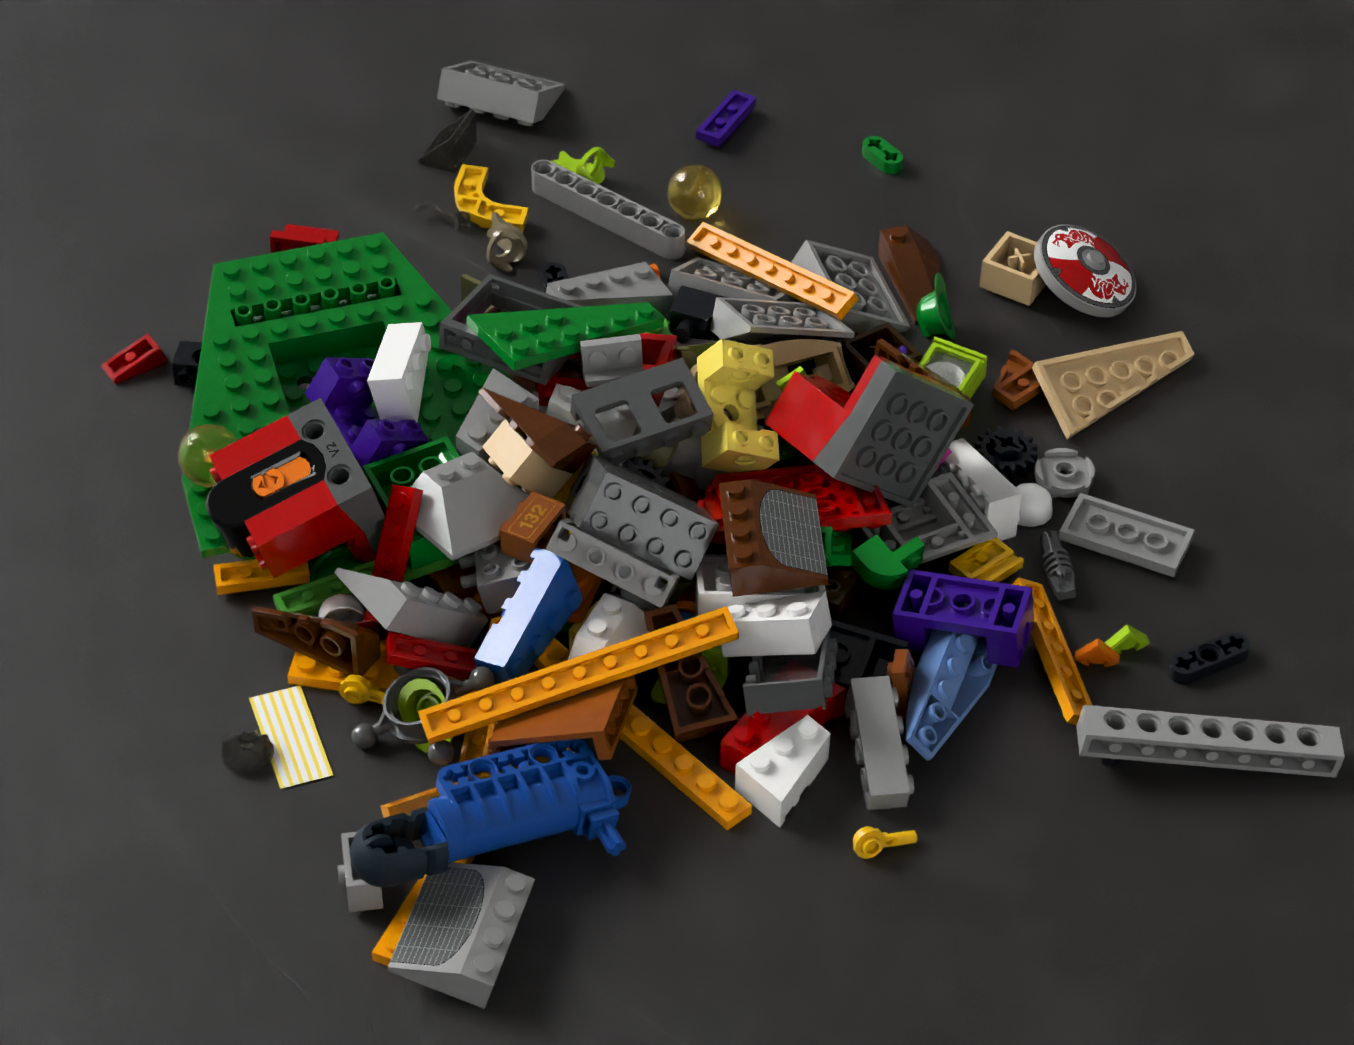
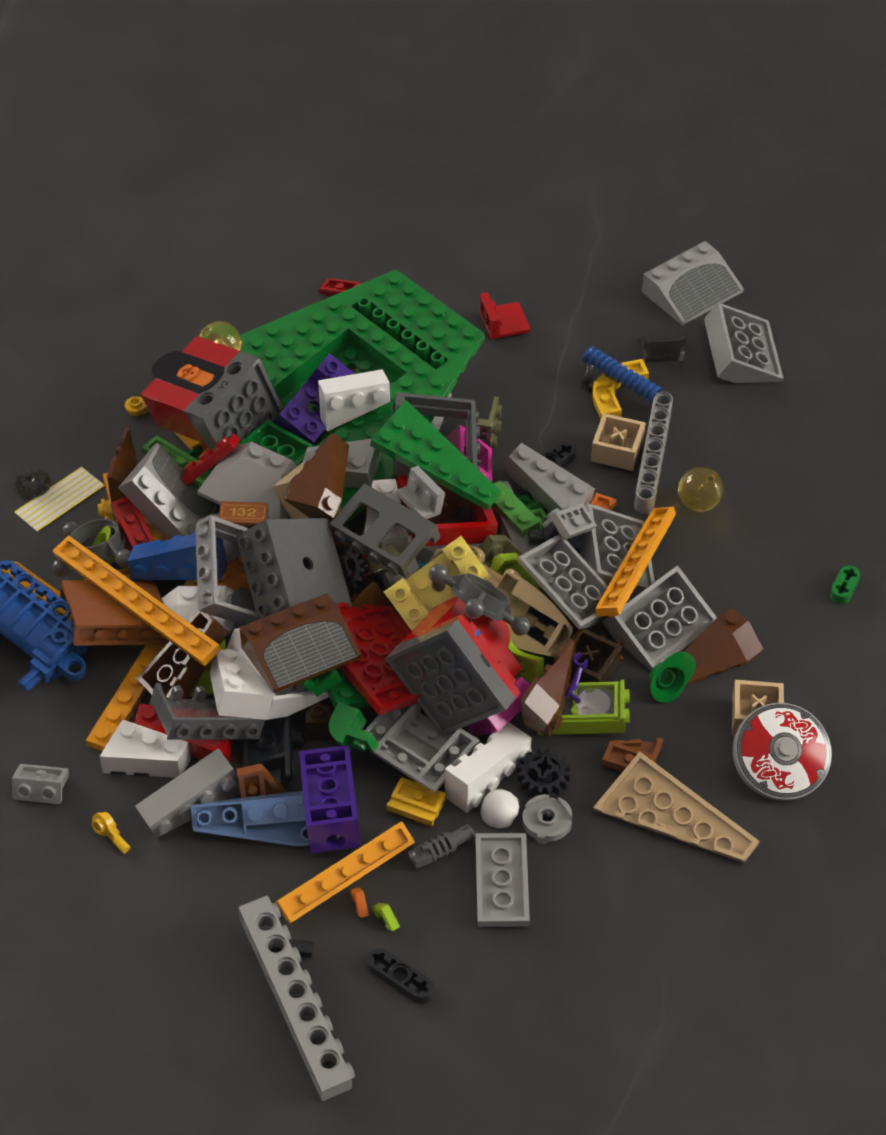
camera: 65 degrees right, 5 degrees up
(188, 608) = (135, 406): none -> yellow plate
(373, 88) = (691, 283): none -> slope
(483, 182) = (621, 373): none -> blue piece
(509, 239) = (570, 407): dark tan hair -> none
(579, 225) = (618, 441): none -> tan brick
(590, 171) = (687, 422): lime hair -> none
(696, 281) = (570, 520): none -> light grey bracket
(726, 118) = (812, 478): dark purple plate -> none
(770, 884) = (39, 783): none -> light grey bracket
(808, 362) = (480, 598): none -> dark grey piece

